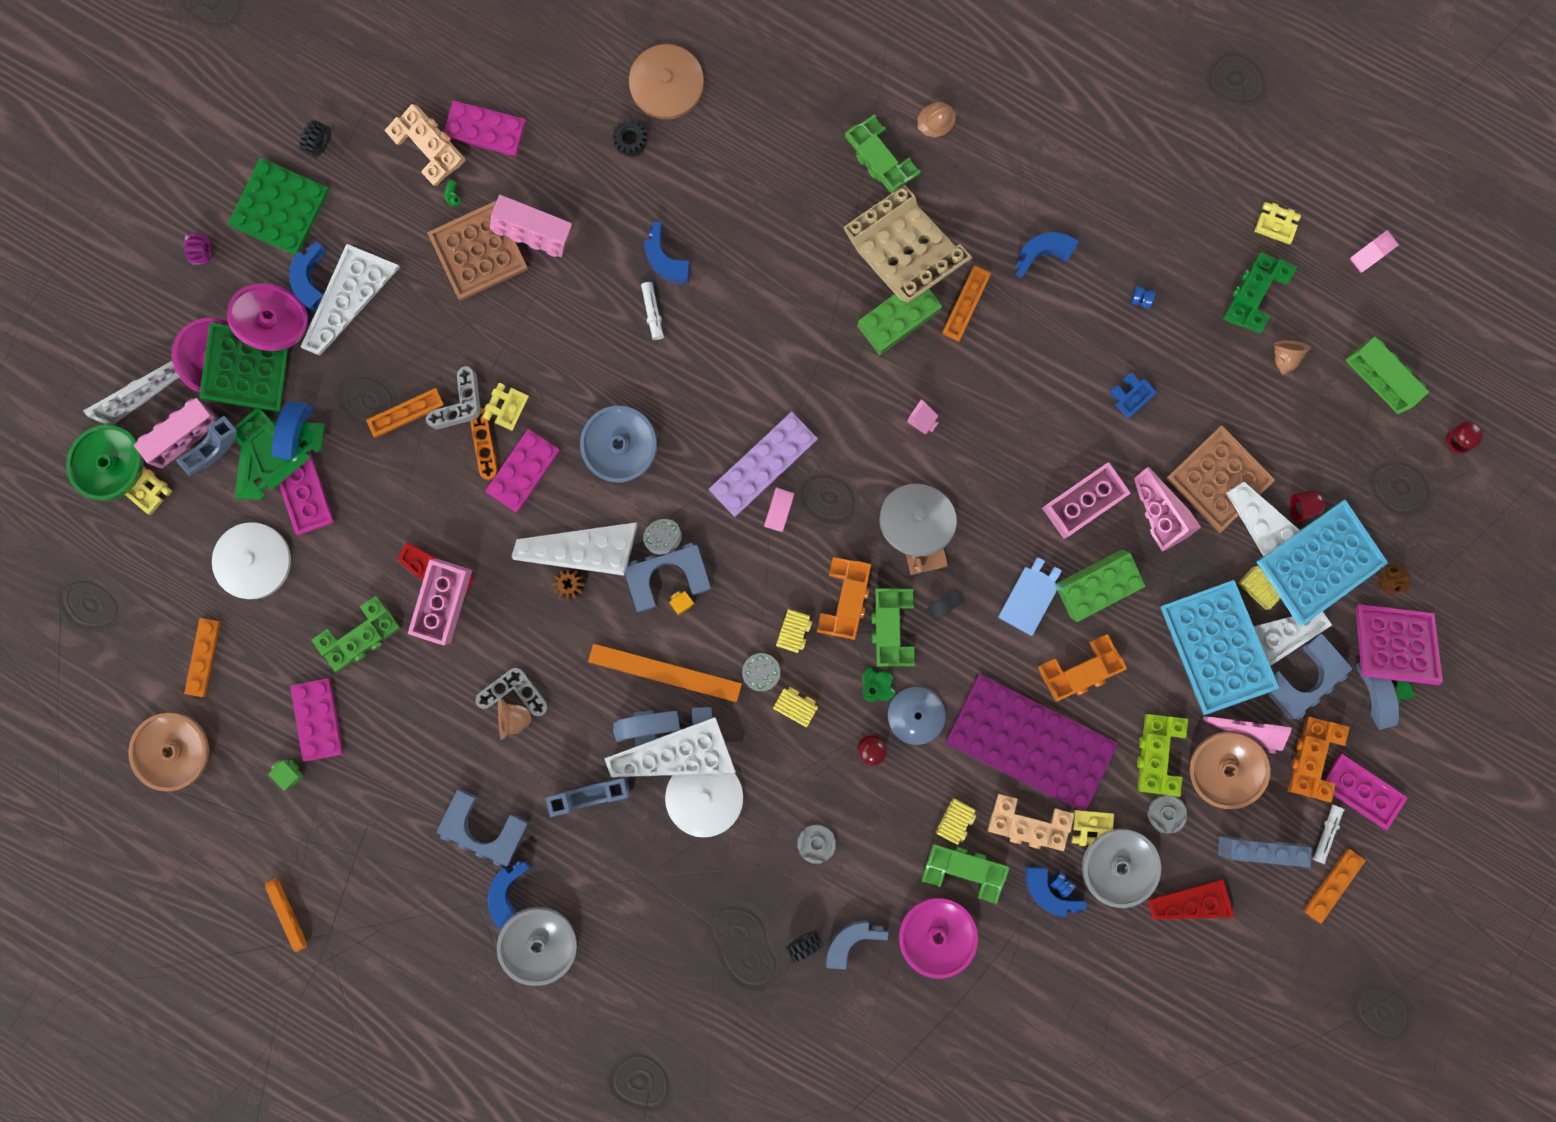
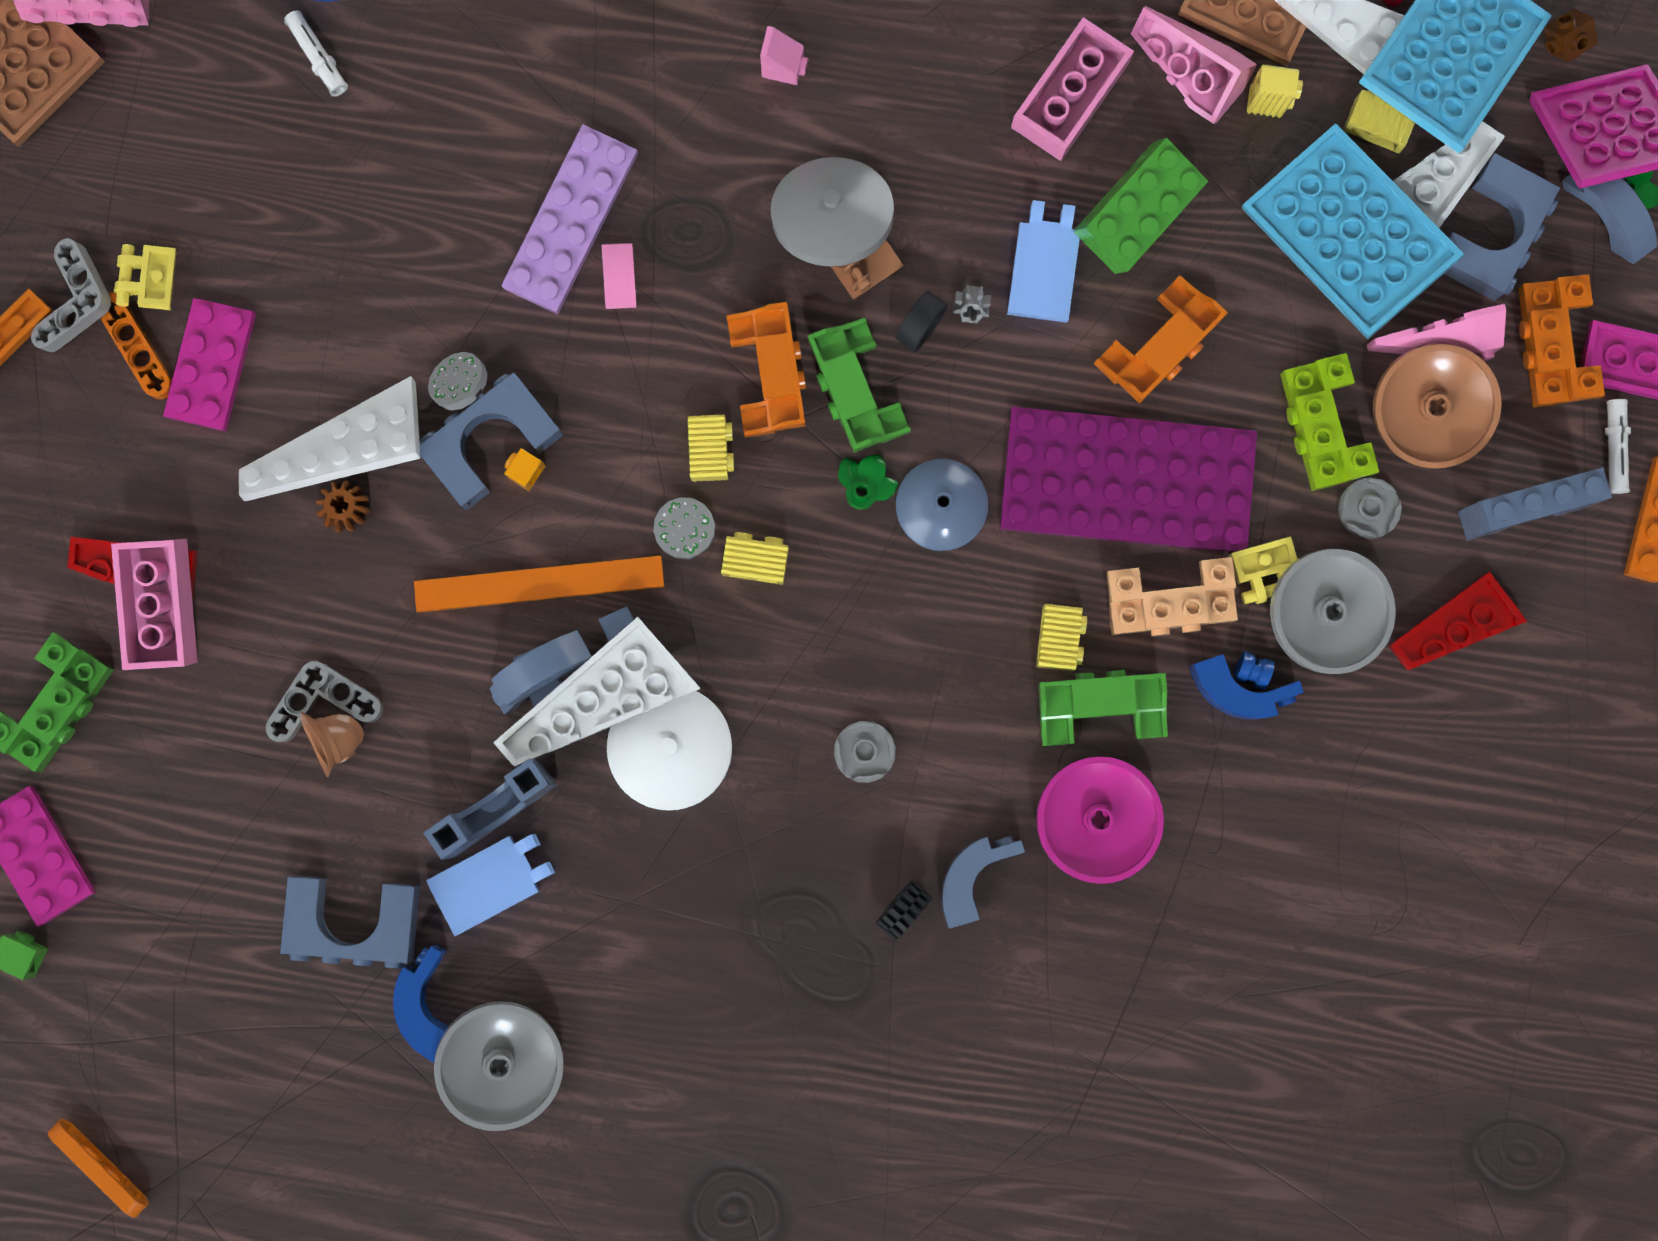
camera: 20 degrees left, 0 degrees up
(570, 836) = (487, 883): none -> light blue tile
(618, 444) = (338, 267): sand blue dish -> none
(872, 750) = (894, 579): dark red helmet -> none
(979, 605) = (972, 304): none -> light grey gear
(1204, 547) = (1274, 91): none -> light yellow brick

